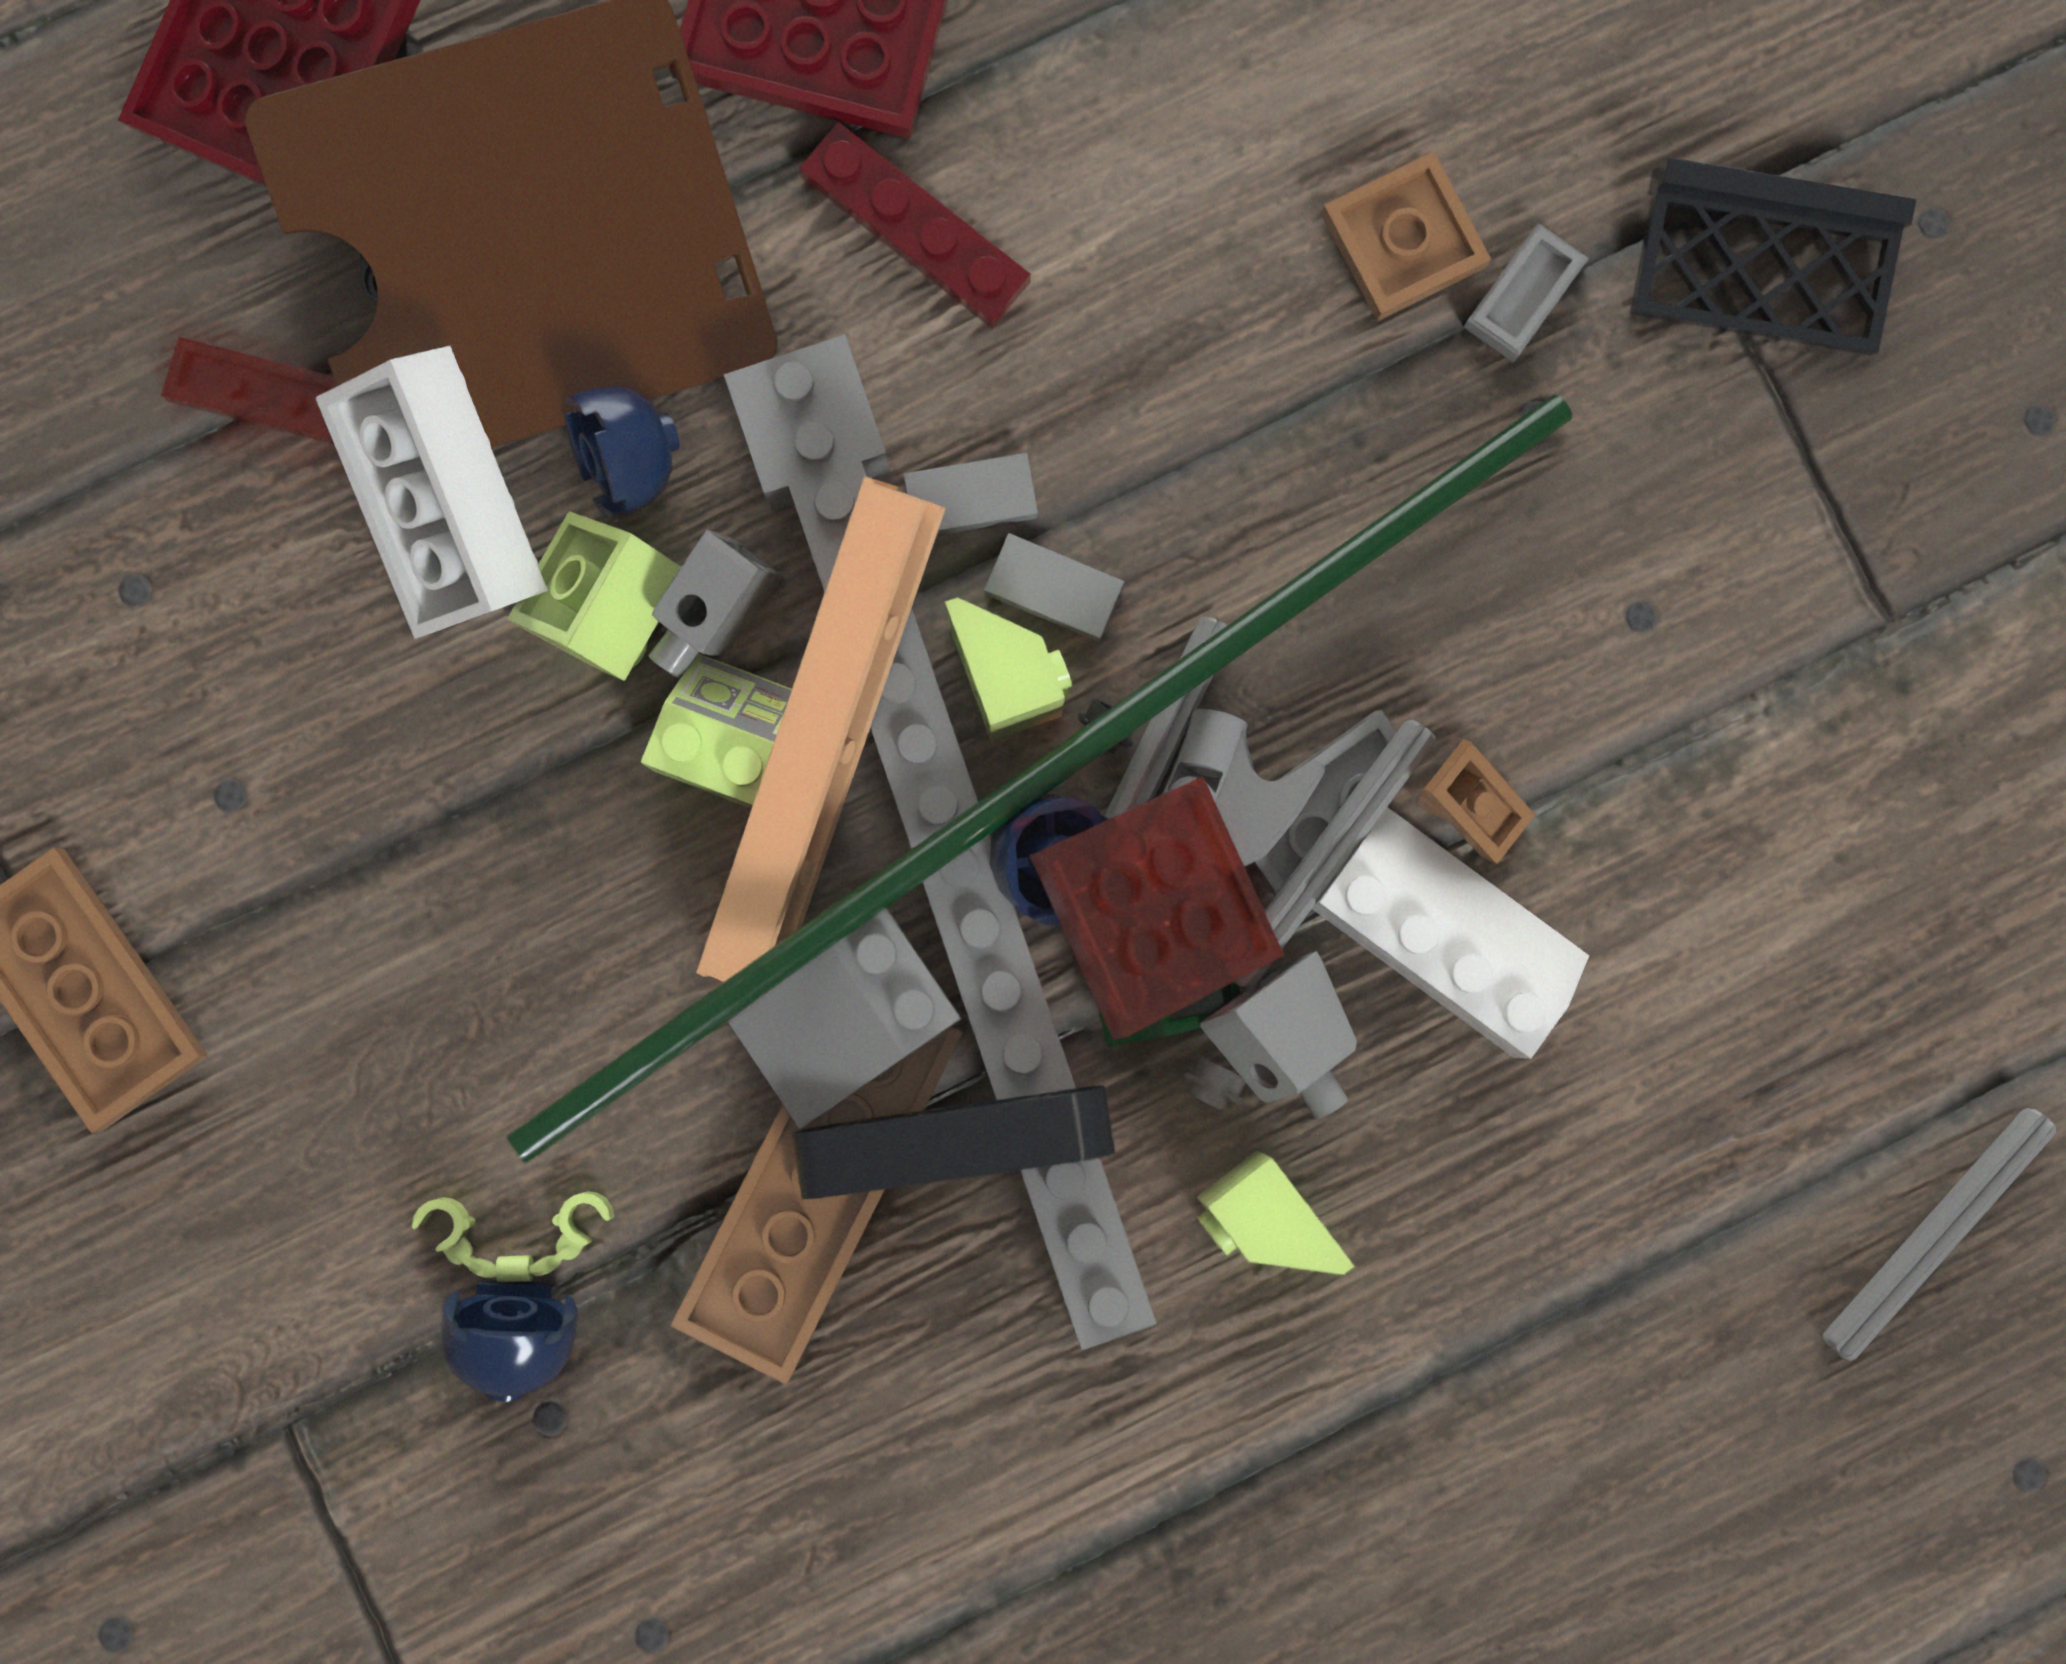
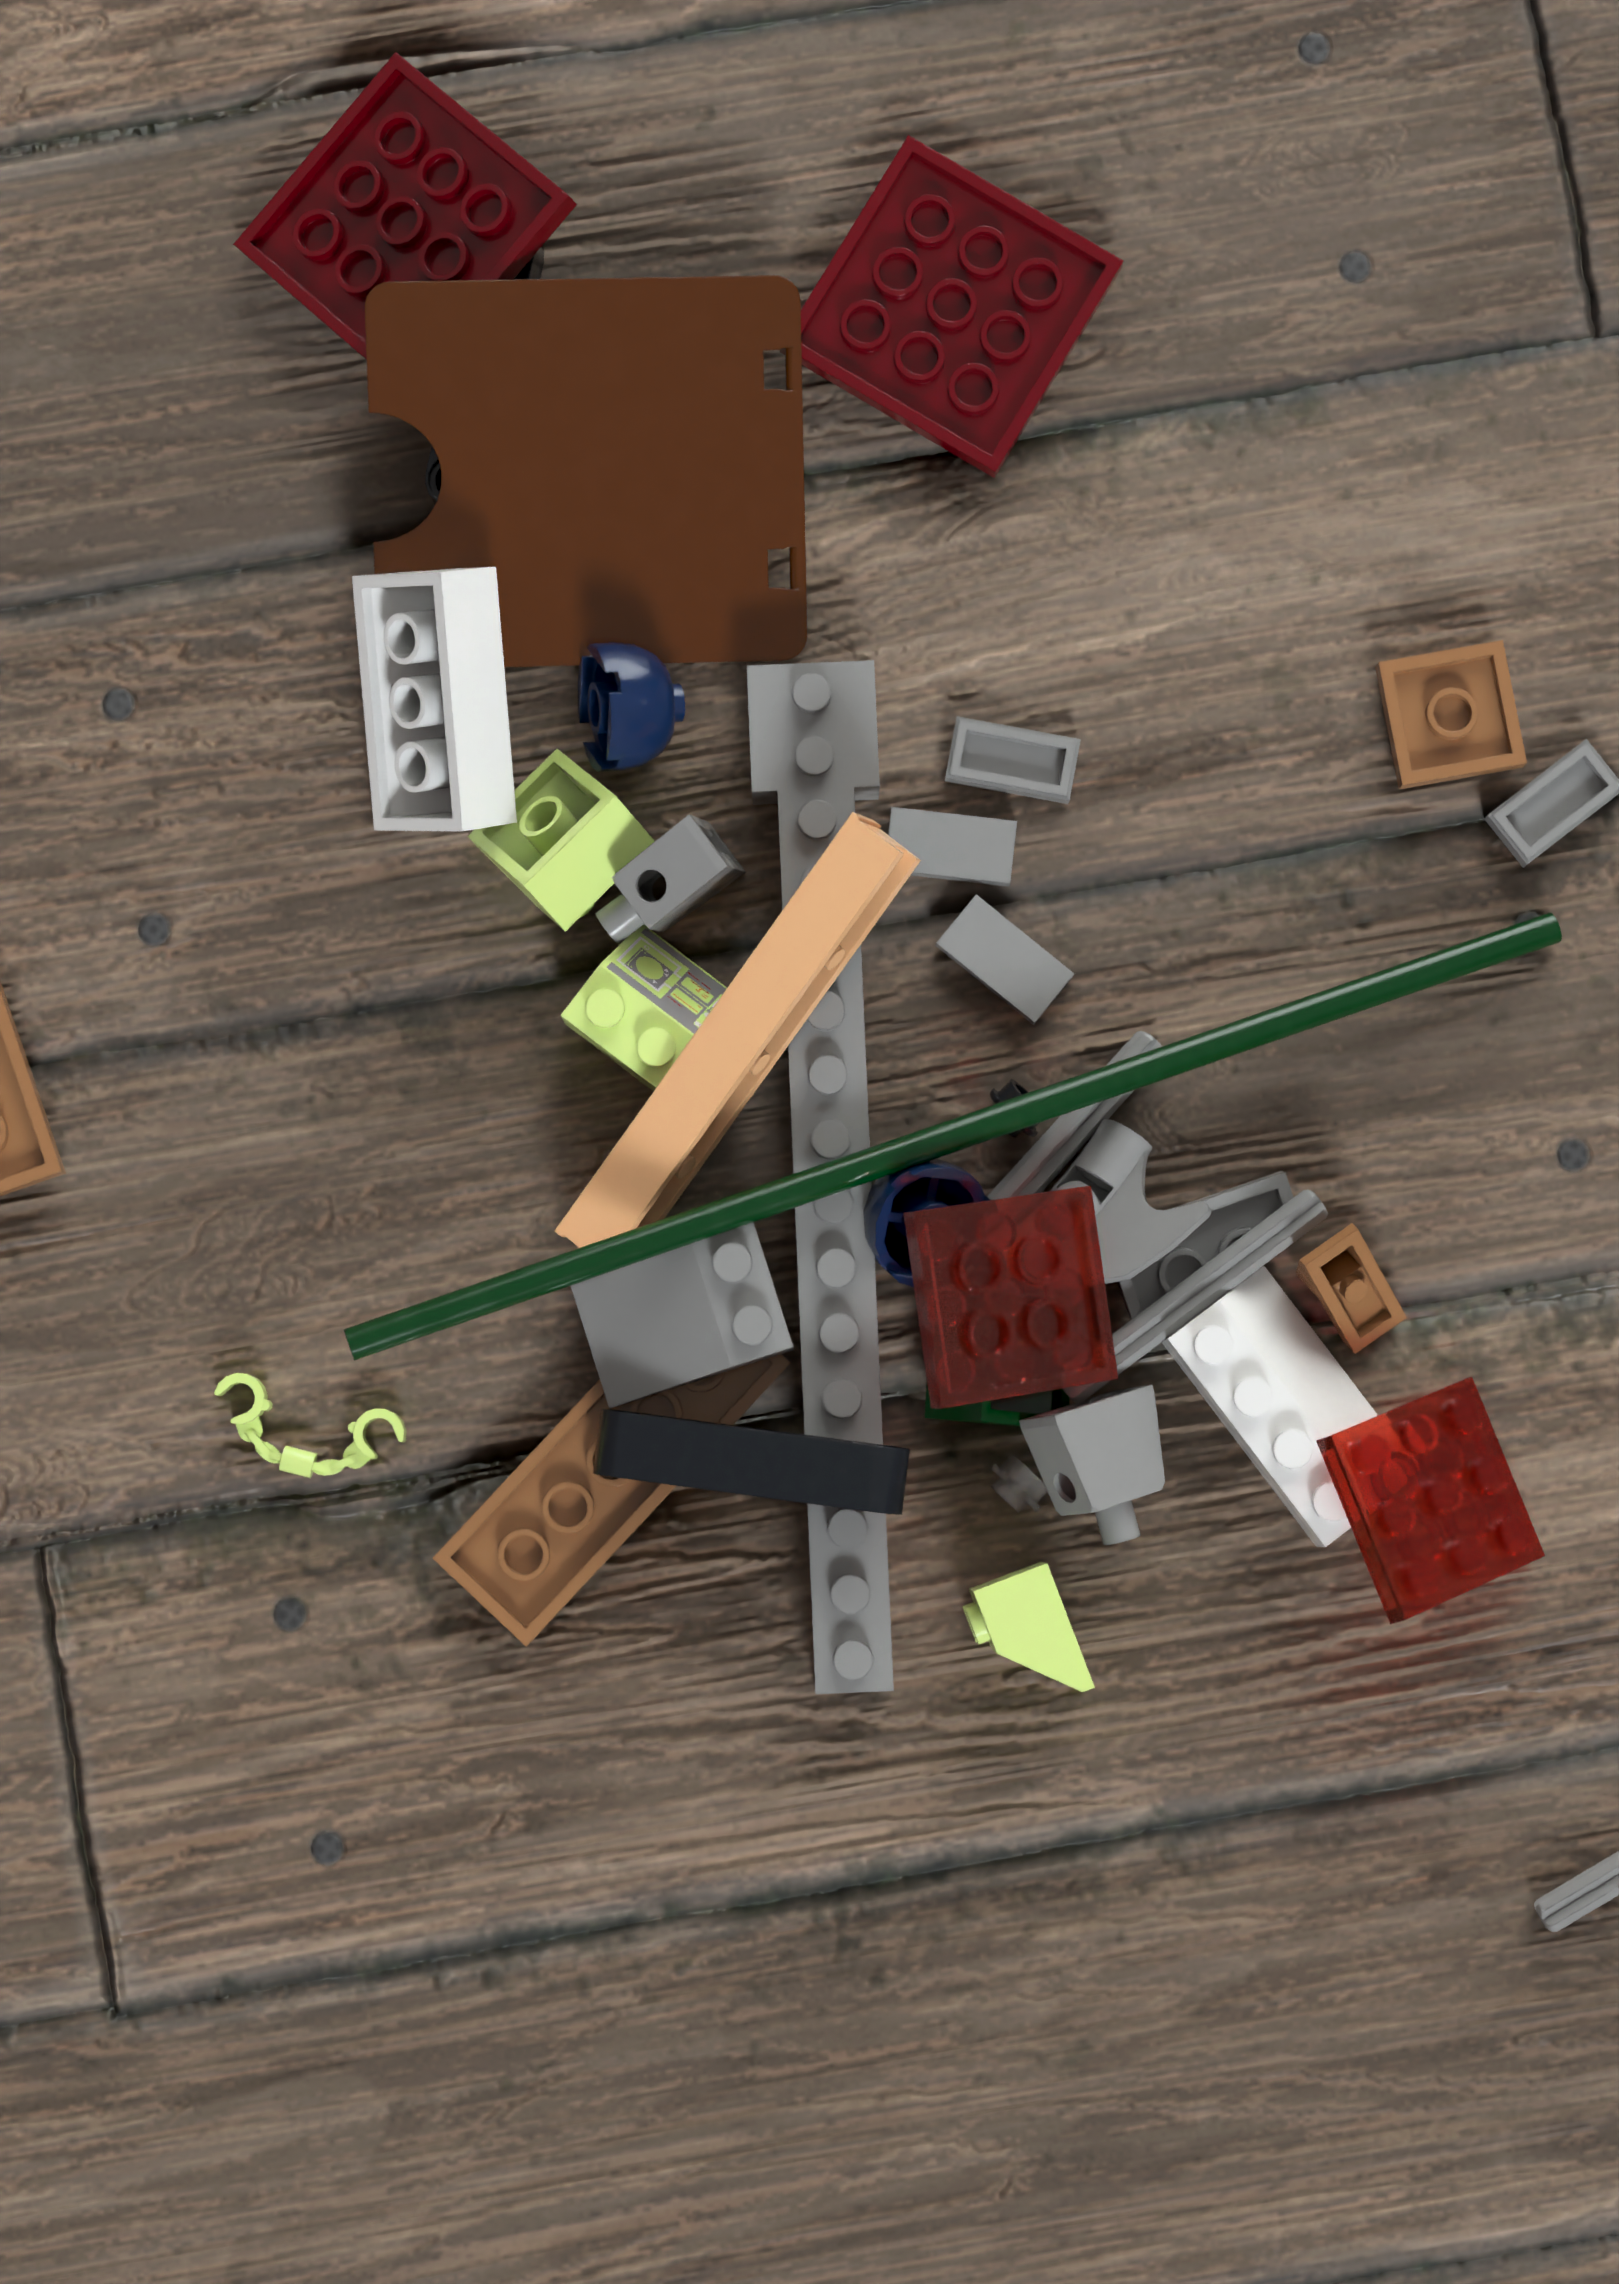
camera: 25 degrees right, 0 degrees up
(248, 388) = (287, 543): clear red tile -> none
(508, 1337) = (278, 1523): dark blue cylinder -> none
(915, 225) = (974, 564): dark red plate -> none
(1005, 398) = (1012, 760): none -> light grey tile
(1007, 670) = (935, 1029): yellowish green slope -> none
(1614, 983) = (1430, 1499): none -> clear red plate

